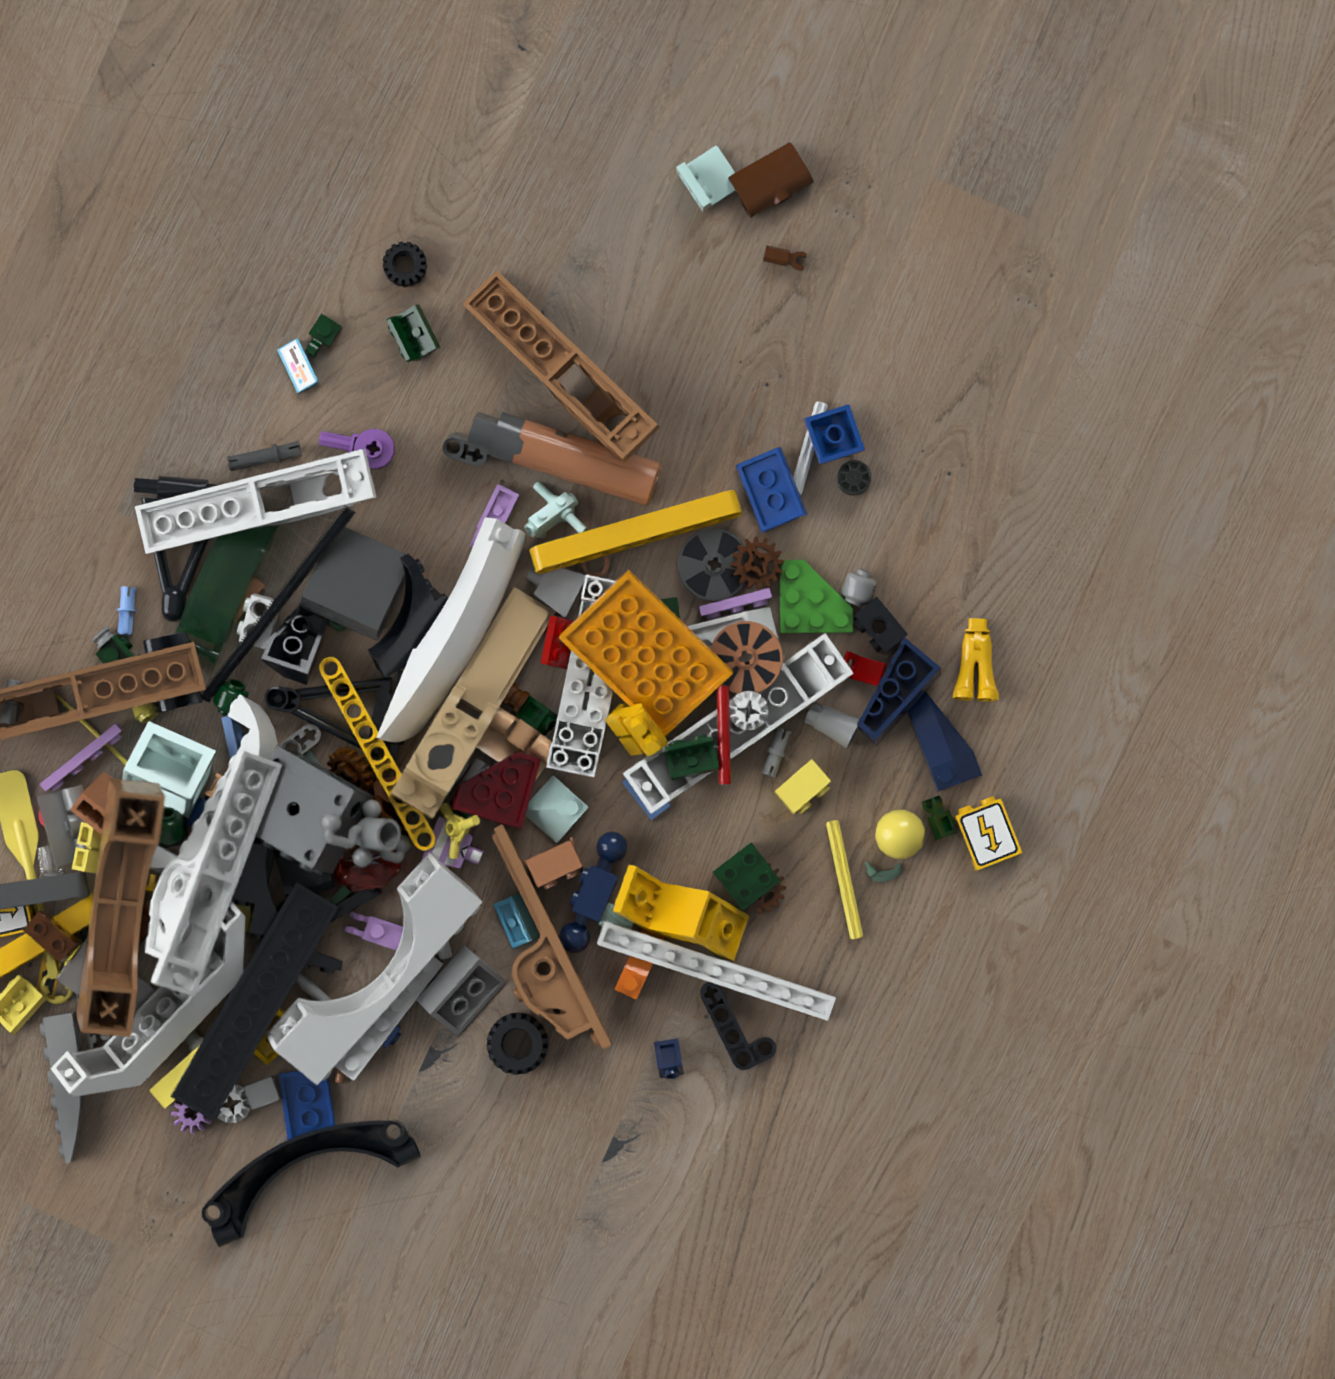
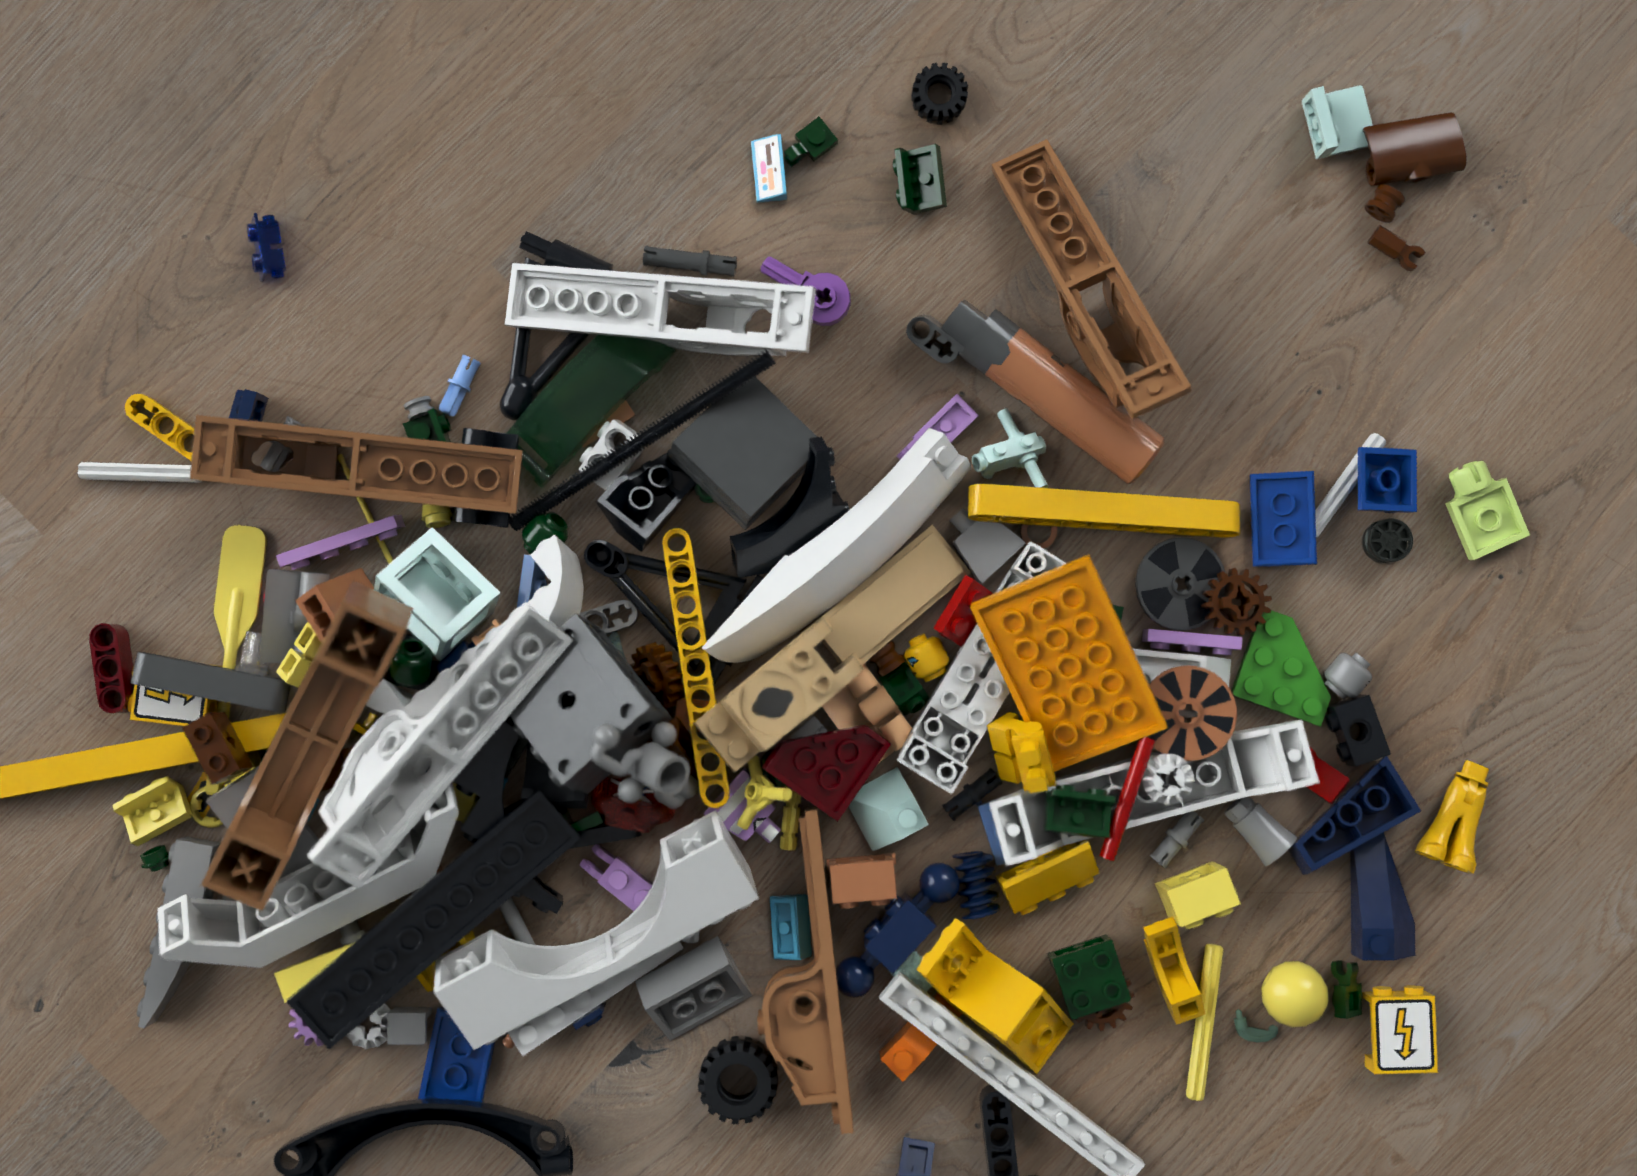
camera: 20 degrees right, 0 degrees up
(30, 1039) = (155, 858): none -> dark green plate
(488, 842) = (790, 822): none -> light yellow axle
(544, 686) = (926, 657): none -> yellow head
(615, 775) = (972, 794): none -> black pin
(640, 838) = (977, 884): none -> dark blue piece
(691, 814) = (1048, 876): none -> yellow slope
(764, 228) = (1385, 203): none -> reddish brown wheel
(805, 848) = (1172, 971): none -> yellow arch
(917, 430) = (1484, 510): none -> yellowish green plate

